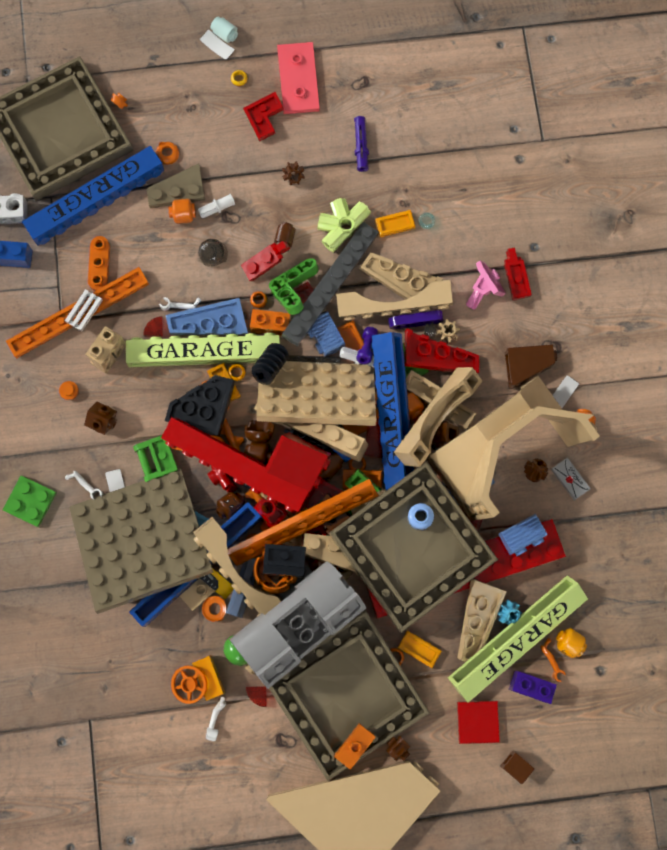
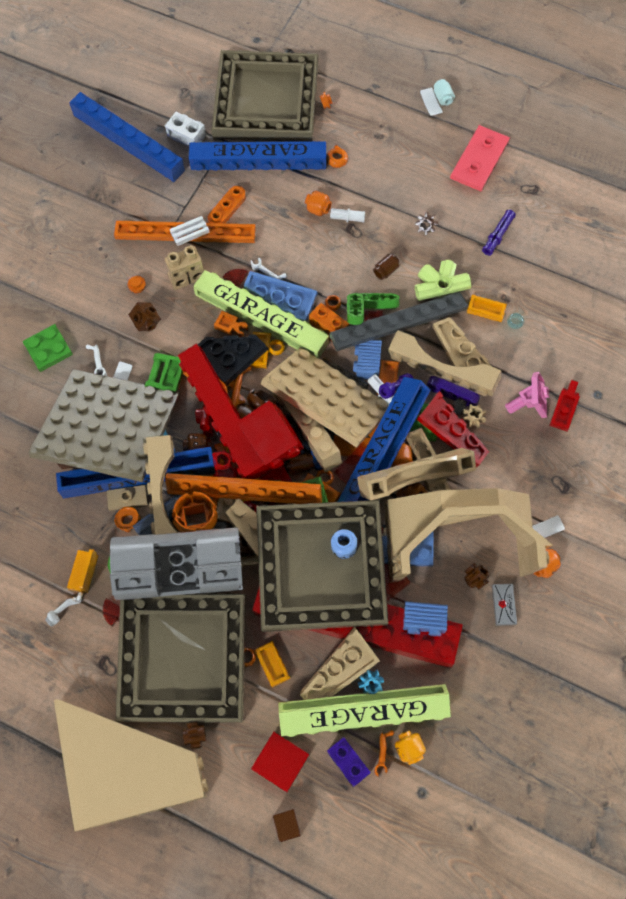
camera: 40 degrees right, 10 degrees down
(179, 186) = (335, 186): dark tan wing -> none
(179, 377) = (228, 323): none -> orange plate
(189, 684) = (63, 565): orange wheel -> none
(212, 252) = (320, 247): clear smoke hair -> none
(218, 584) = (142, 497): yellow sticker -> none
(240, 83) = (431, 129): yellow piece -> none
(259, 113) = (429, 166): red plate -> none
(264, 260) = (358, 274): red hinge -> none
(269, 363) = (303, 348): black piece -> none
(284, 560) = (204, 507): black plate -> none
(354, 746) = (157, 705): orange plate -> none
(528, 362) = (532, 481): reddish brown slope -> none

